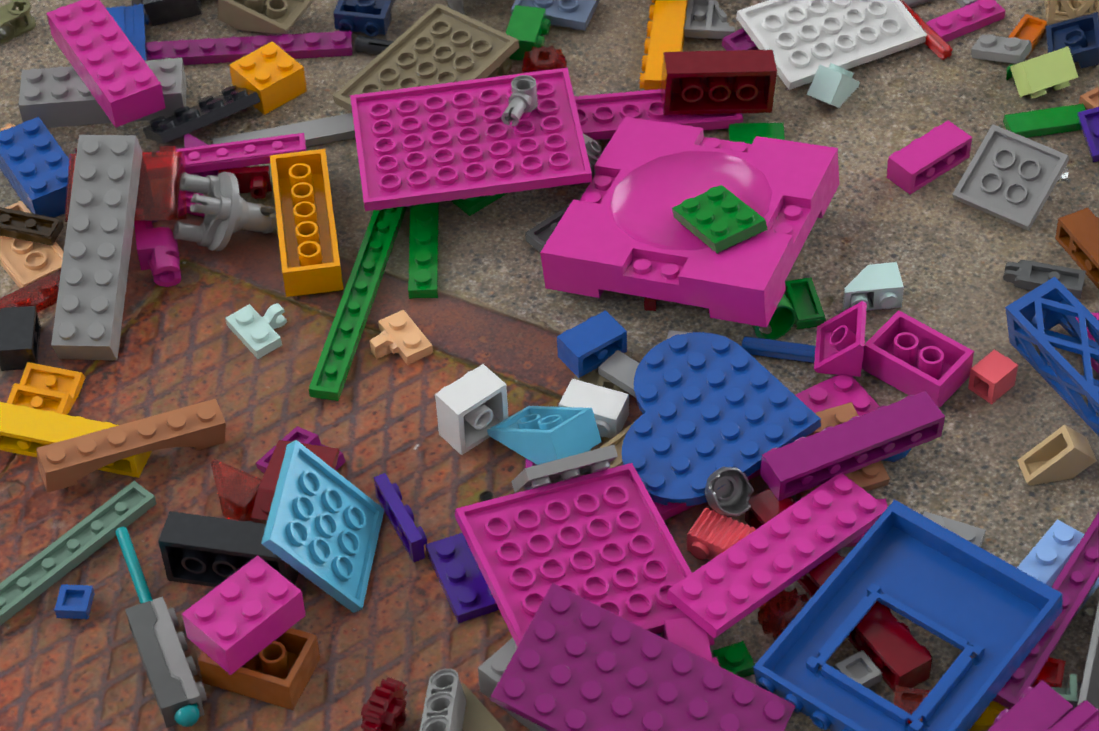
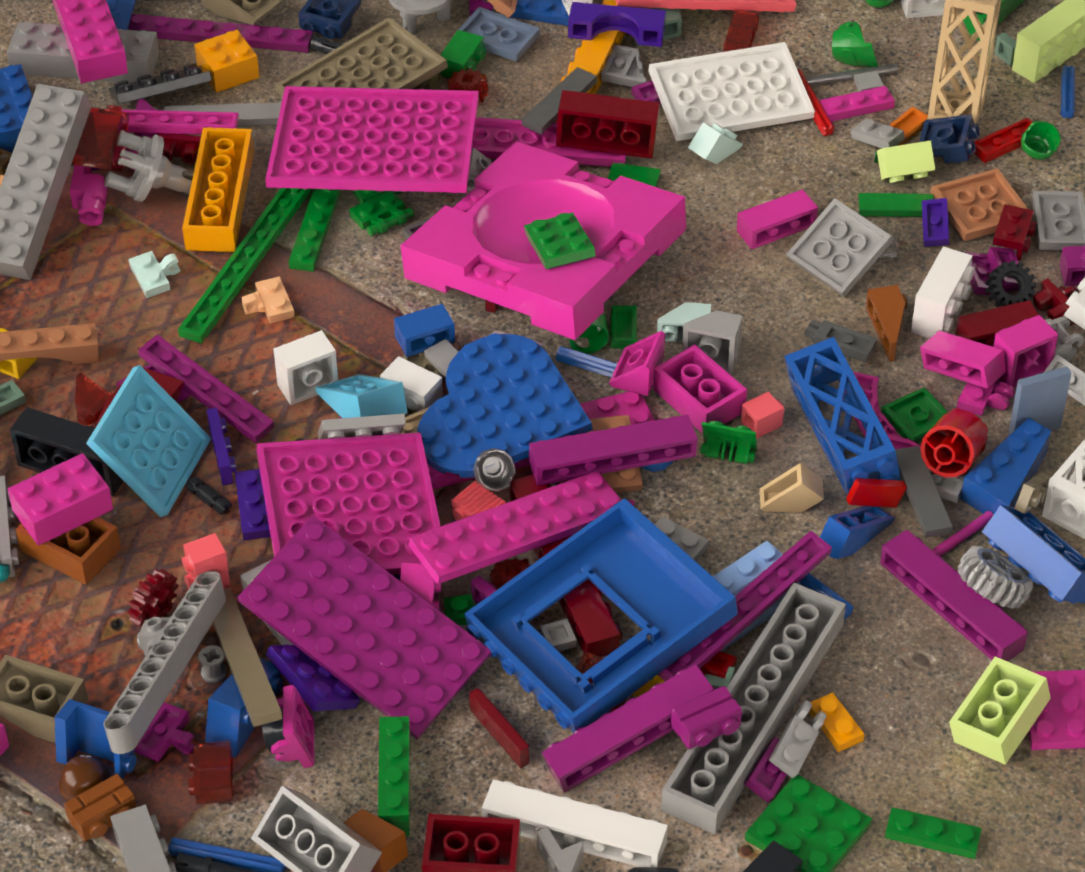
camera: 10 degrees right, 0 degrees up
(364, 452) = (207, 388): none -> magenta plate
(404, 577) = (209, 496): none -> black axle
(428, 654) = (204, 556): none -> coral brick
(487, 218) = (381, 213): none -> green plate
(521, 100) = (427, 112): light grey pin -> none
(649, 69) = (546, 111): none -> dark grey tile
(758, 636) = (481, 589): none -> magenta plate
(918, 295) = (717, 336): none -> light grey slope
(984, 408) = (719, 435): none -> green hinge

